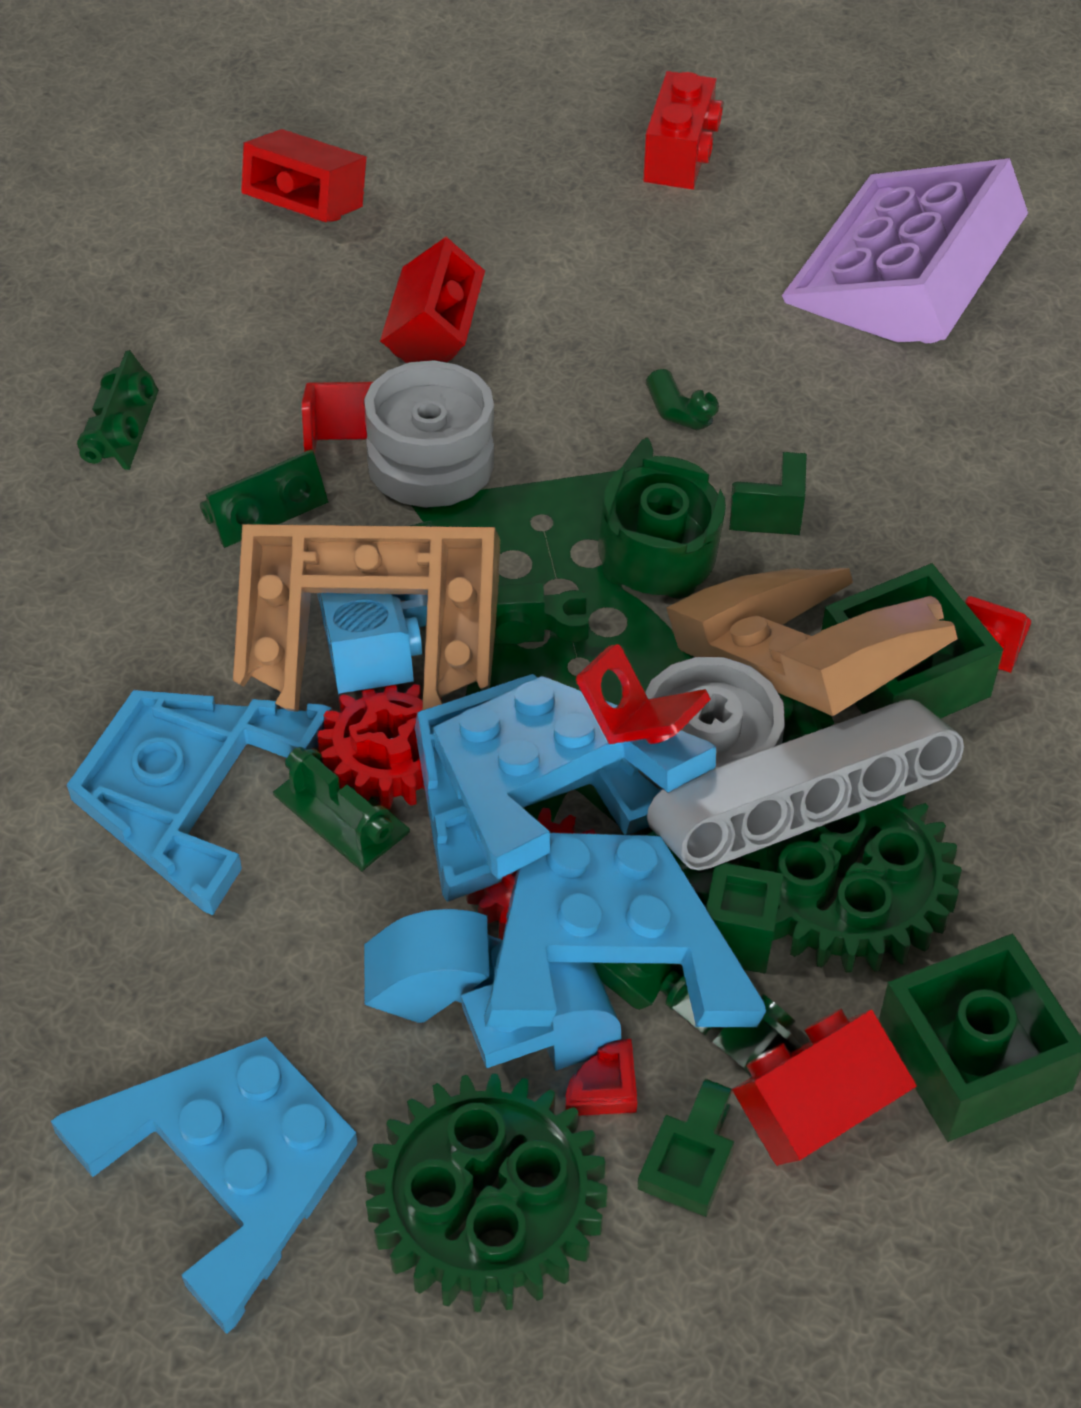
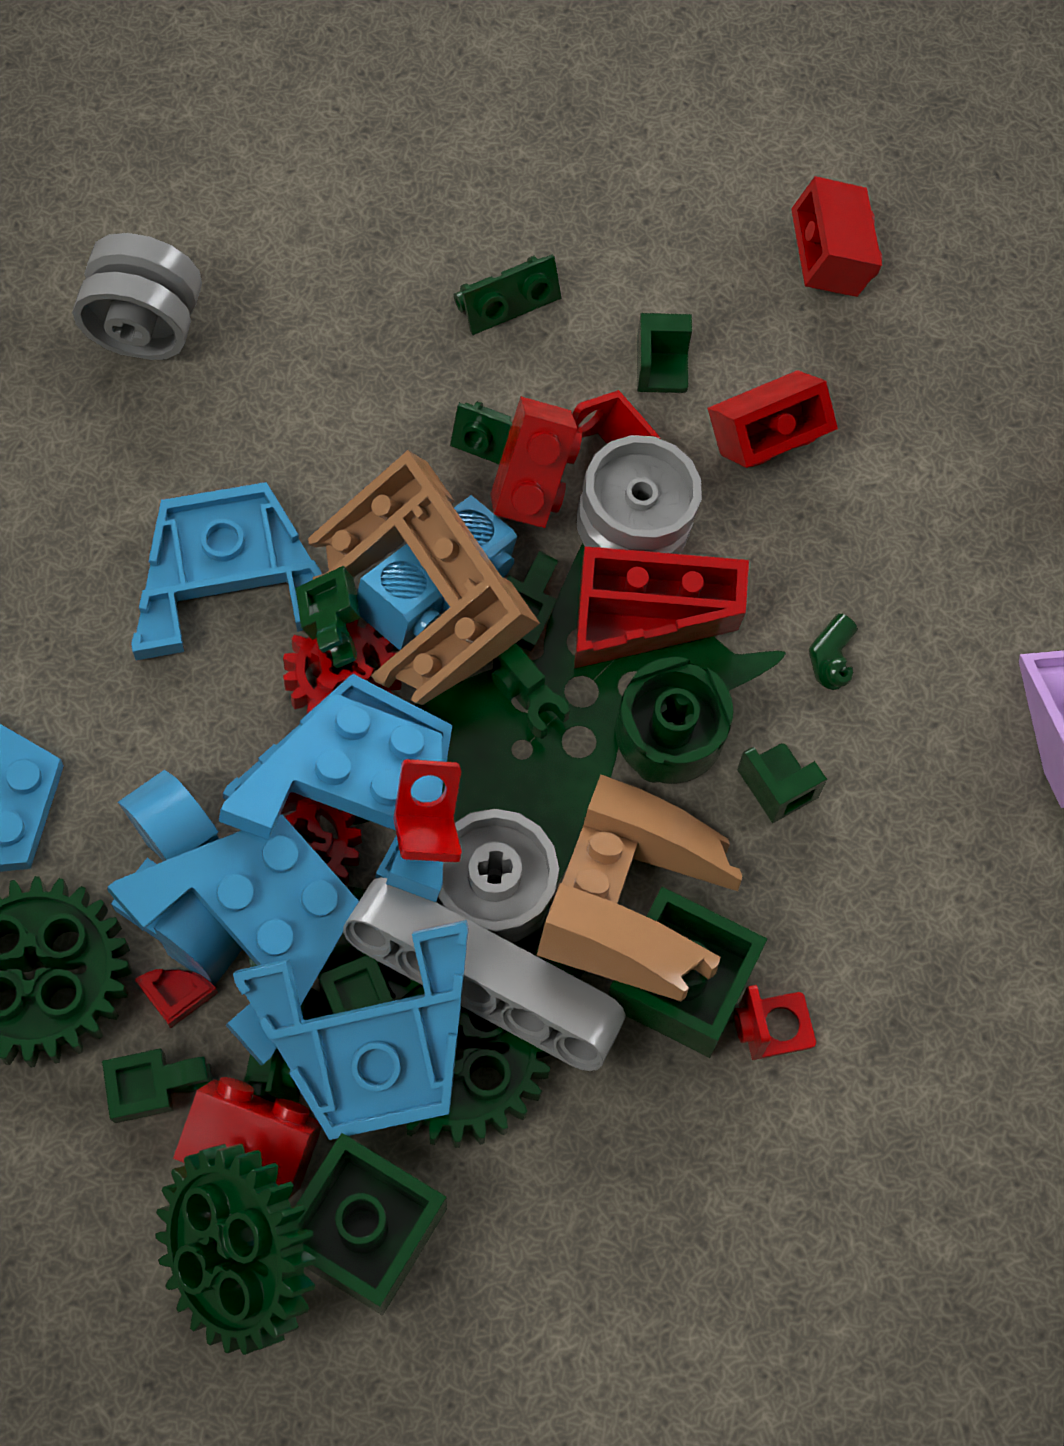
camera: 50 degrees right, 15 degrees up
(283, 348) = (663, 352): none -> dark green panel
(325, 467) = (534, 461): none -> red brick
(329, 693) = (324, 611): none -> dark green plate
(340, 816) = (264, 700): dark green hinge -> none
(531, 474) = (654, 601): none -> red wedge
(836, 911) = (374, 1061): none -> dark azure wing
(984, 1195) = (235, 1248): none -> dark green gear

